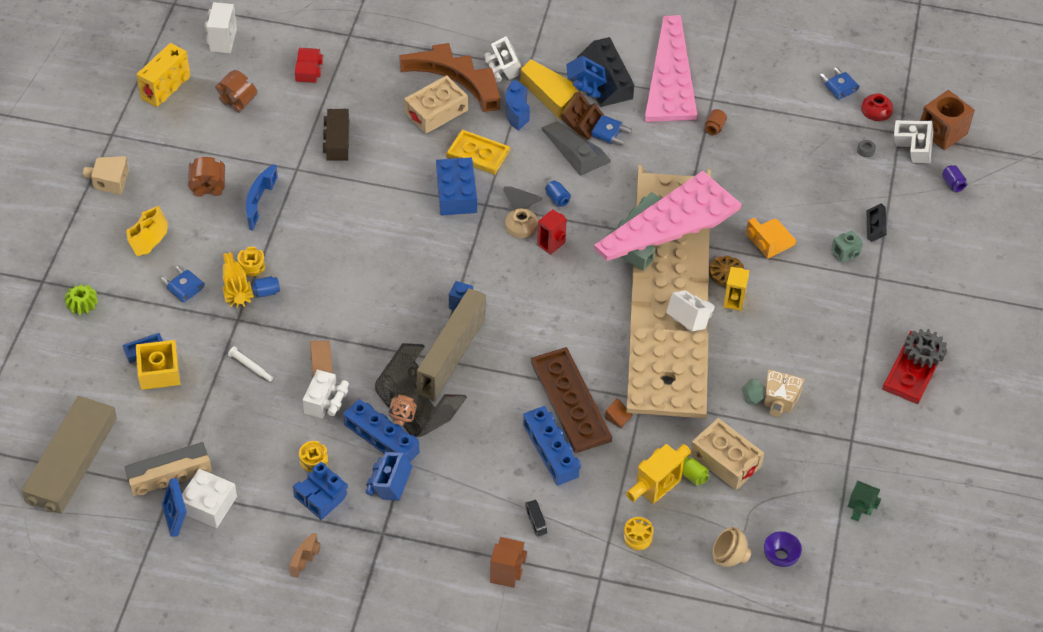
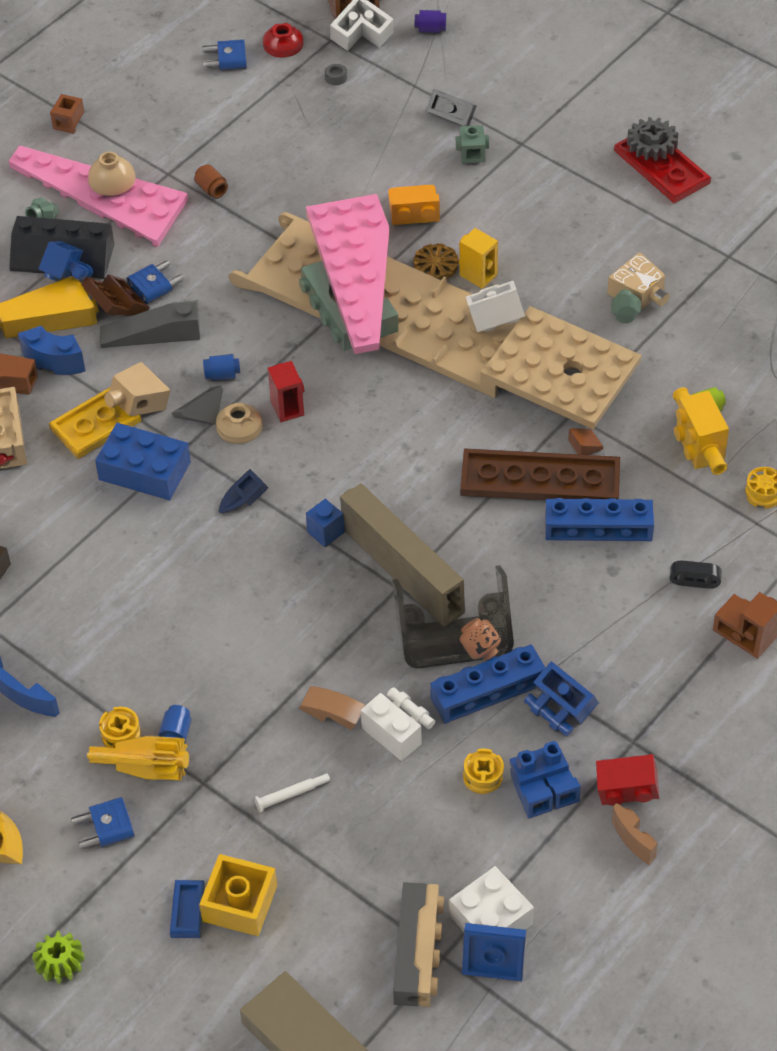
camera: 60 degrees left, 0 degrees up
(342, 536) = (627, 780): none -> red brick
(464, 247) = (244, 490): none -> dark blue plate
(508, 158) = (137, 391): none -> tan torso
(630, 50) = (42, 208): none -> sand green rock
(678, 67) = (111, 175): none -> tan piece
(724, 24) = (67, 113): none -> dark orange brick
(727, 454) = (703, 360): tan piece -> none

